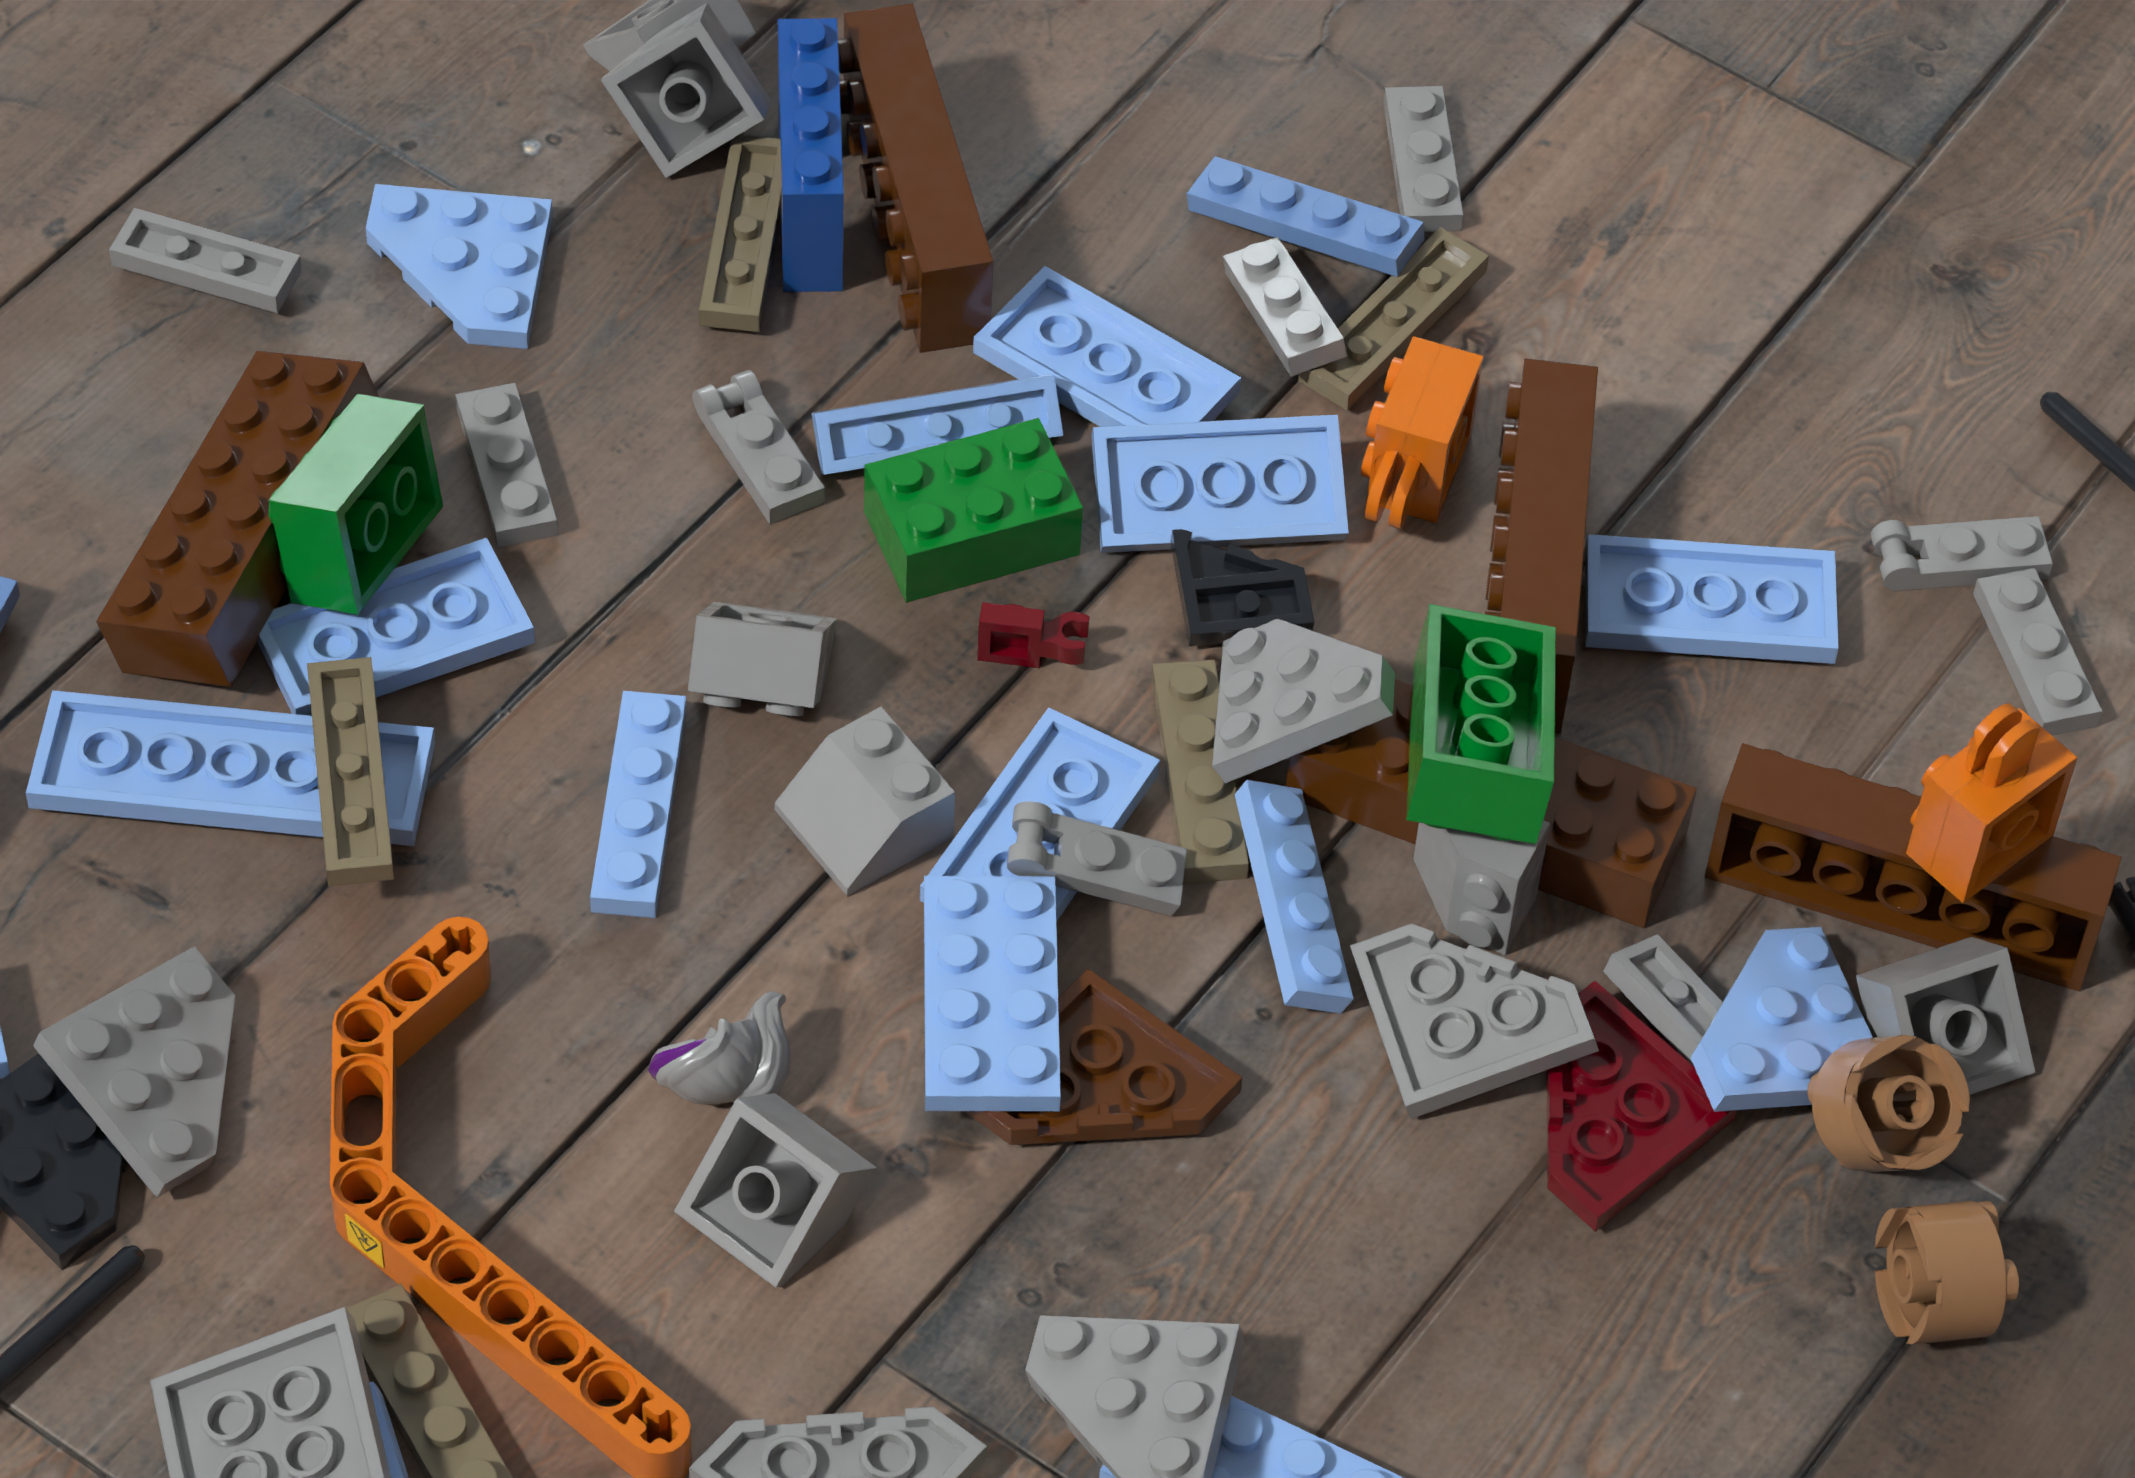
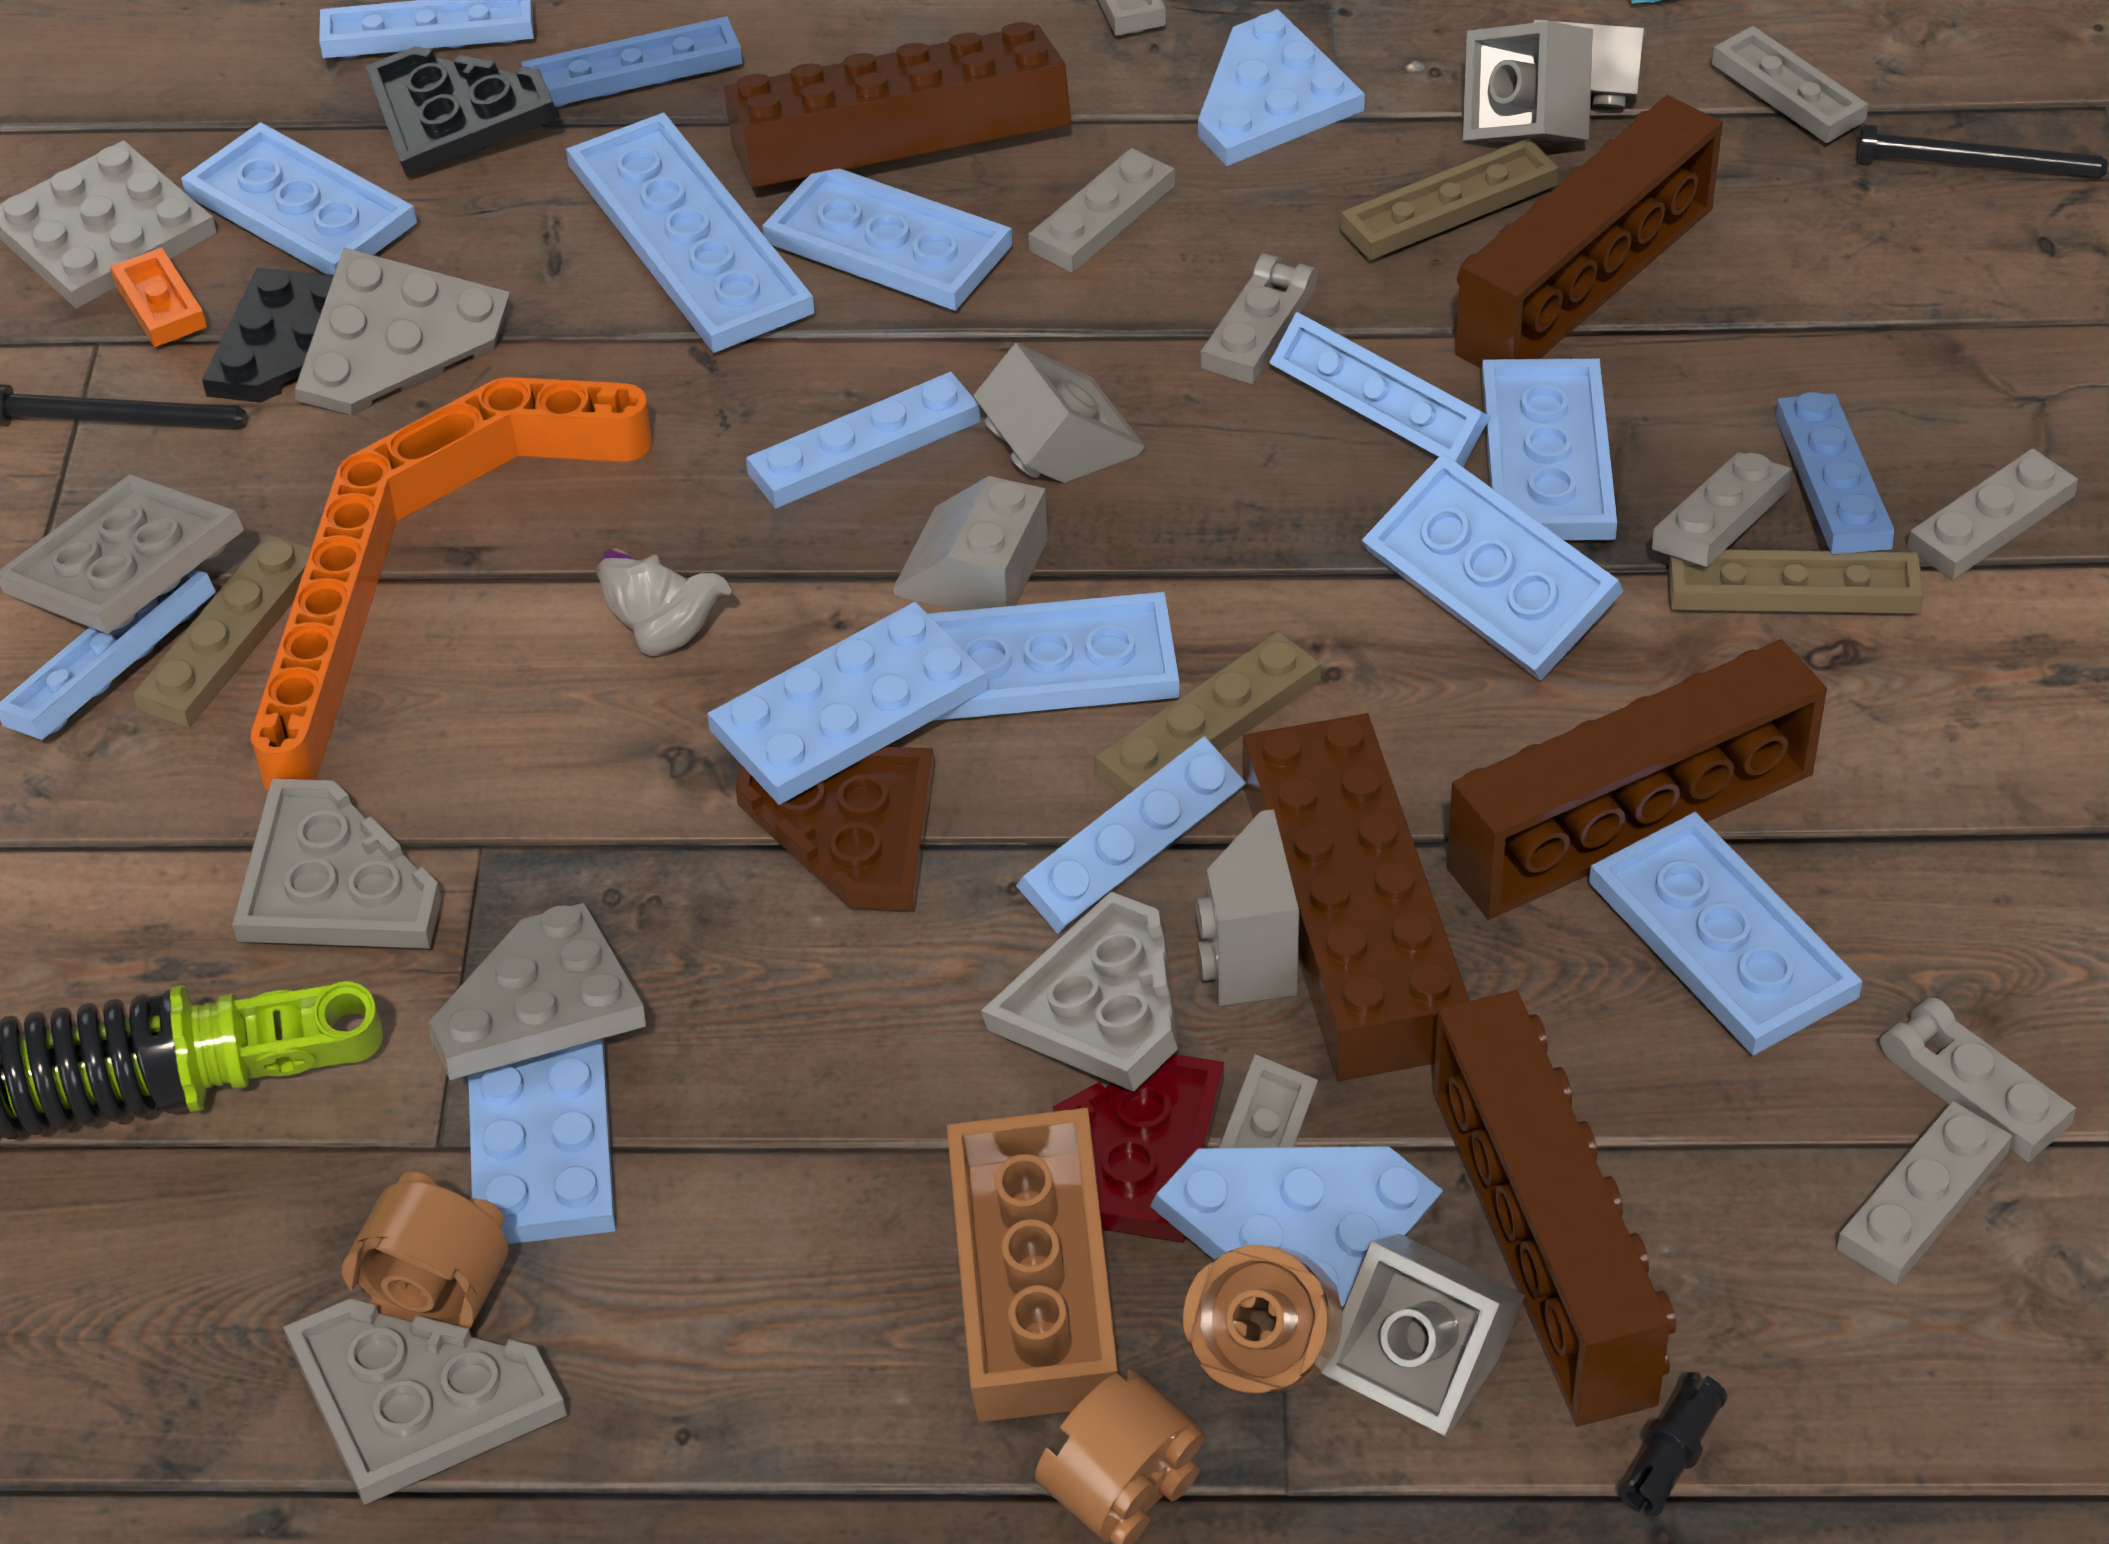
camera: 60 degrees right, 5 degrees down
(350, 772) = (717, 270): dark tan plate -> none
(356, 504) = (946, 135): green brick -> none
(773, 1187) = (572, 688): light grey slope -> none
(810, 155) = (1486, 168): blue arch -> none
(972, 509) = (1312, 449): green brick -> none
(1021, 636) = (1222, 544): dark red plate -> none
(1097, 859) = (1036, 693): light grey plate -> none
(1235, 590) = (1398, 639): black wing -> none
(1292, 692) = (1294, 704): light grey plate -> none
(1420, 431) = (1656, 635): orange brick -> none
(1482, 724) = (1333, 797): green brick -> none
(1727, 1215) = (1031, 1262): none -> medium nougat brick
(1990, 802) = (1581, 1159): orange brick -> none

